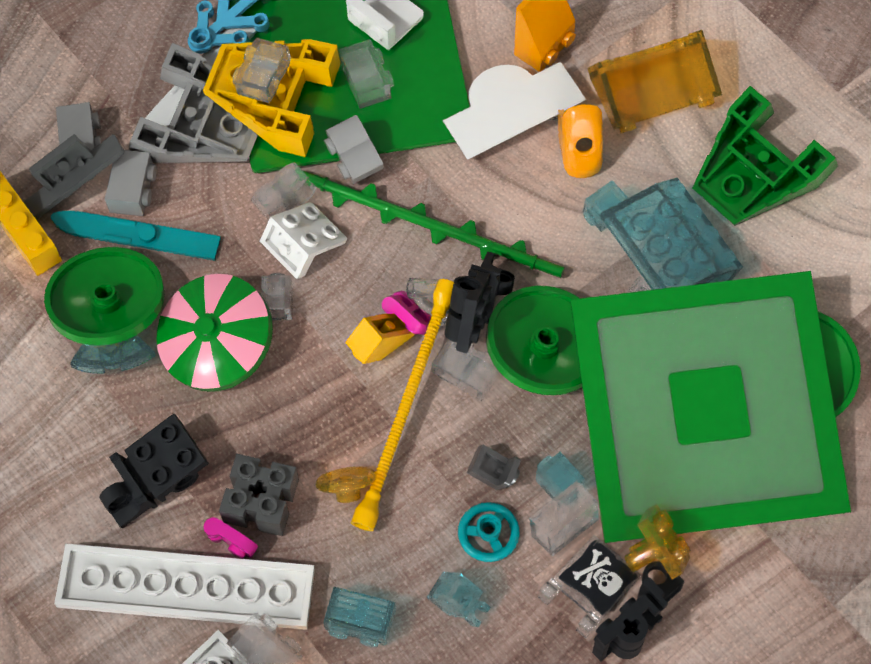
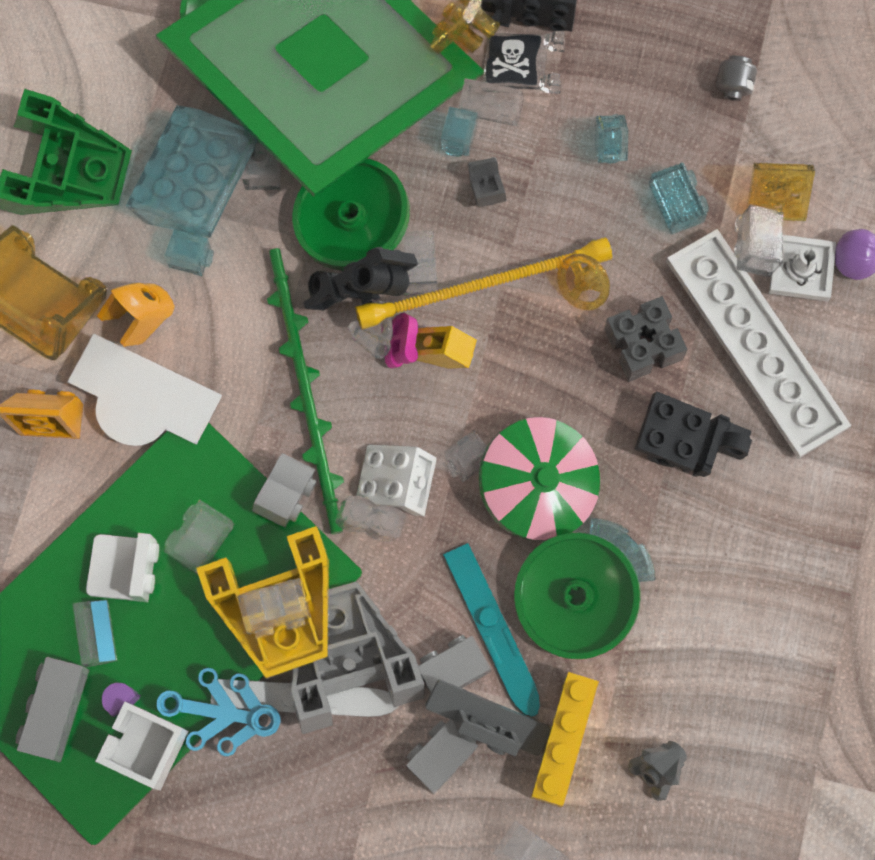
camera: 125 degrees left, 10 degrees up
(239, 543) = (694, 326): dark pink plate -> none
(484, 521) = (540, 146): teal piece -> none

